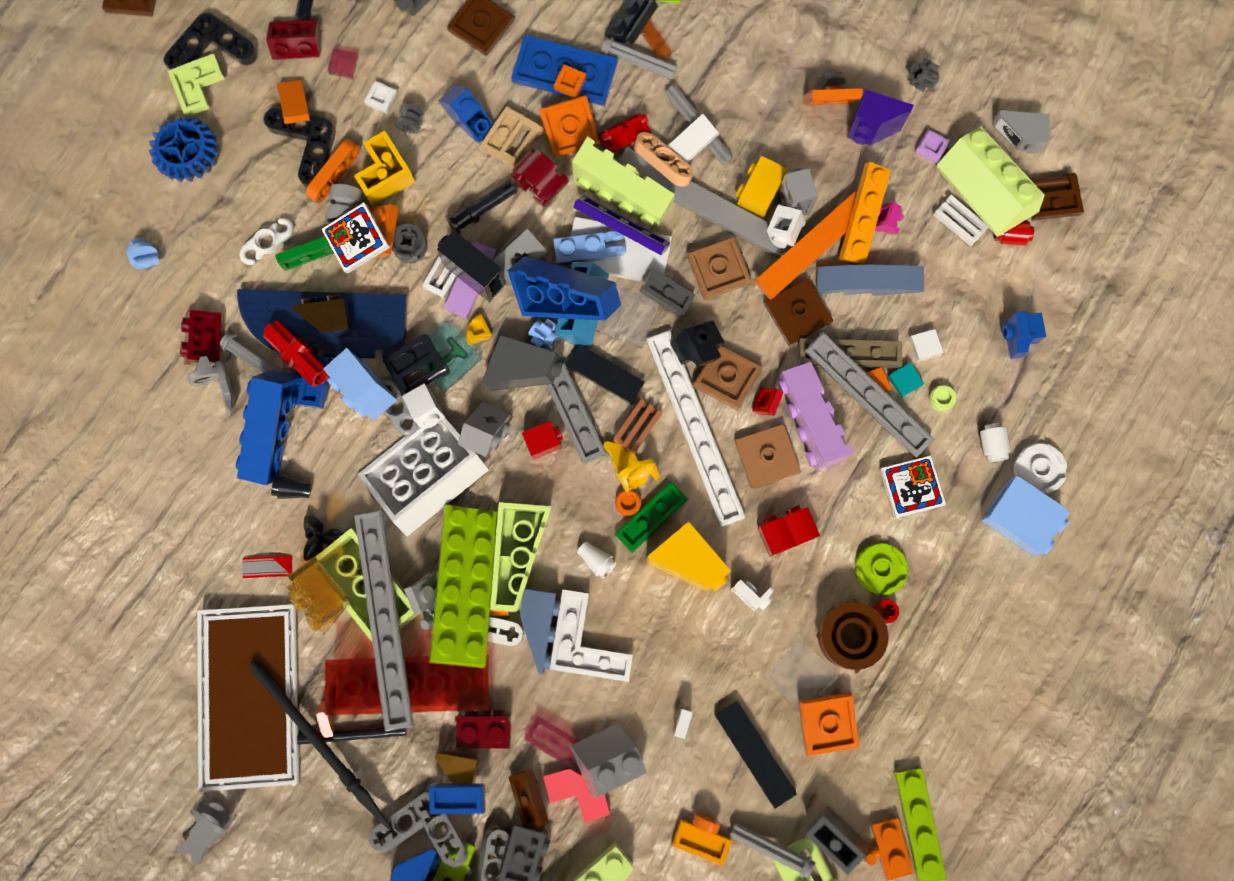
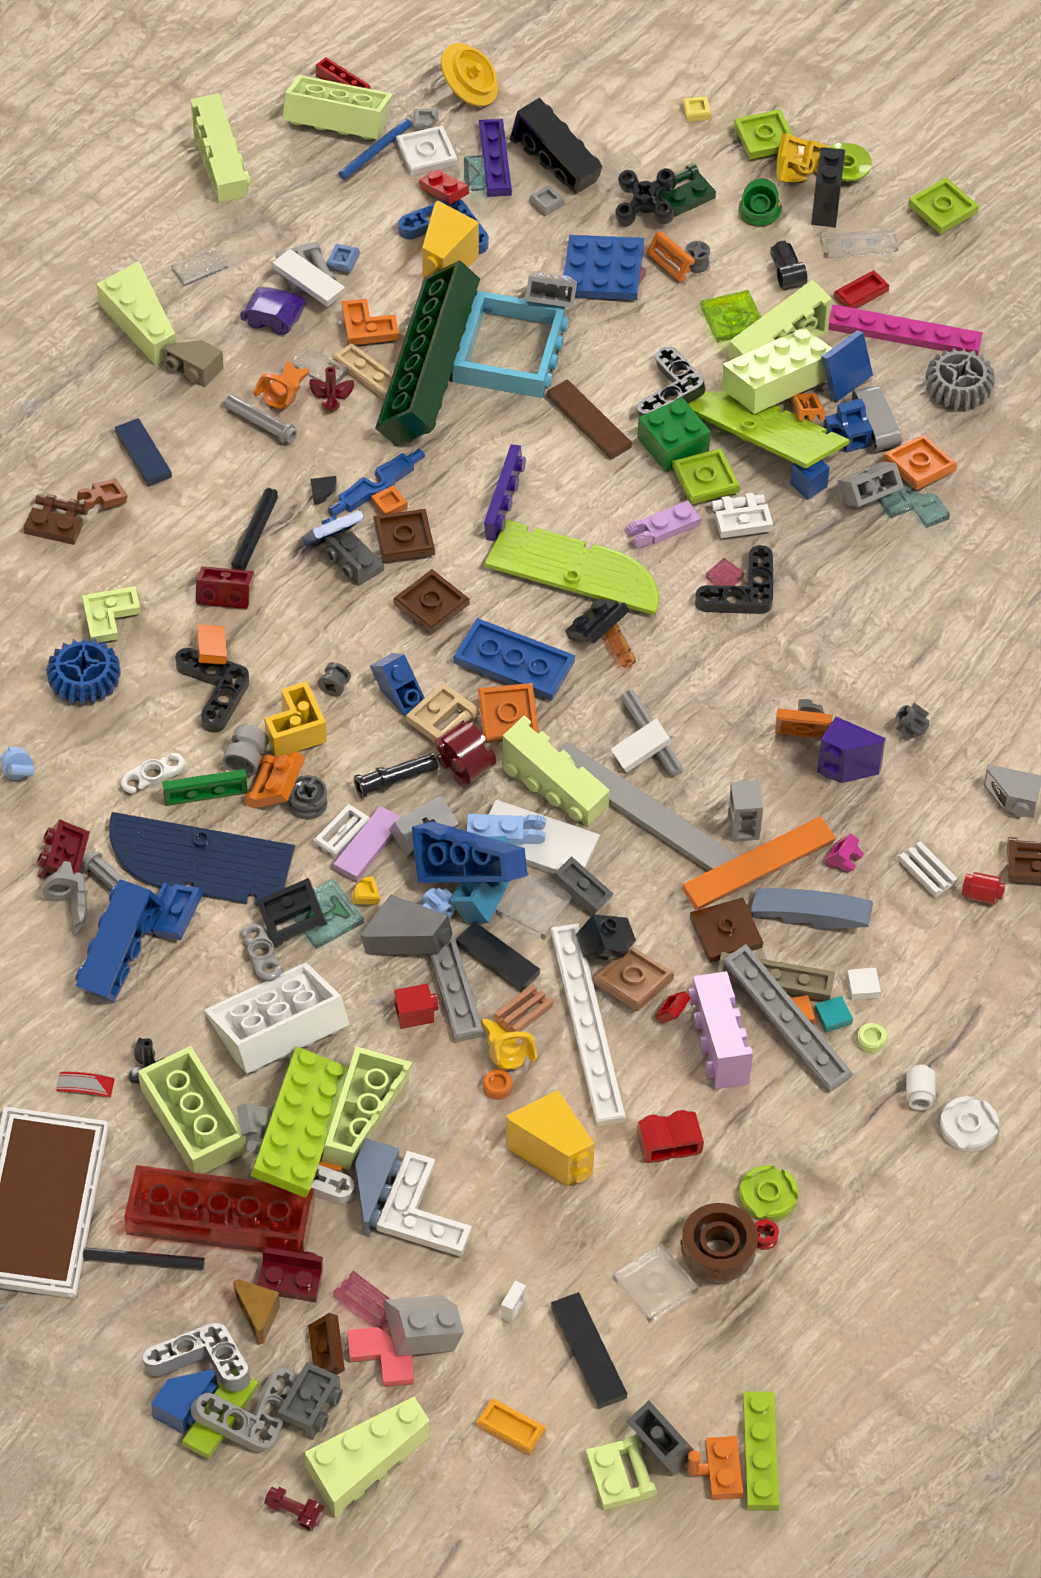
camera: 10 degrees right, 25 degrees down
(210, 35) = (133, 571): black beam -> none
(288, 487) = (128, 1009): black cone -> none
(295, 353) = (165, 877): red piece -> none
(317, 594) = (140, 1102): clear yellow slope -> none
(325, 722) = (119, 1235): tile -> none
(326, 315) = (206, 846): dark brown slope -> none
(333, 170) = (242, 713): orange beam -> none
(342, 63) = (272, 618): clear pink tile -> none
(345, 775) = (138, 1299): black piece -> none
(355, 238) = (254, 776): tile -> none
(359, 385) = (228, 915): light blue brick -> none
(381, 97) = (307, 656): white tile -> none
(384, 620) = (208, 1136): light grey tile -> none
(423, 407) = (291, 951): white brick -> none
(457, 798) = (250, 1322): blue tile -> none
(471, 265) = (373, 821): black brick -> none
(484, 429) = (354, 979): light grey brick -> none
(570, 81) = (517, 668): orange tile -> none
(597, 560) = (453, 1133): white cone -> none
(622, 225) = (546, 811): dark purple tile -> none
(624, 132) = (570, 728): red hinge -> none
(638, 58) = (598, 659): light grey axle -> none
(651, 517) = (494, 1113): green tile -> none
(674, 169) = (605, 758): light nougat beam -> none
(706, 823) = (519, 1403): orange tile -> none
(718, 268) = (645, 873): medium nougat plate -> none
(747, 594) = (614, 1193): white bracket -> none
(761, 187) = (707, 801): yellow brick -> none
(767, 456) = (662, 1063): medium nougat plate -> none
(773, 850) = (617, 1451): light grey axle -> none
(783, 220) = (725, 838): white brick -> none
(828, 724) = (676, 1330): orange plate -> none
(864, 214) = (818, 842): light orange plate -> none
(912, 487) = (820, 1118): tile -> none
(932, 146) = (910, 793): lavender tile -> none
(990, 182) = (962, 830): yellowish green slope -> none
(1022, 331) = (974, 984): blue brick -> none
(1026, 516) = (941, 1163): light blue brick -> none

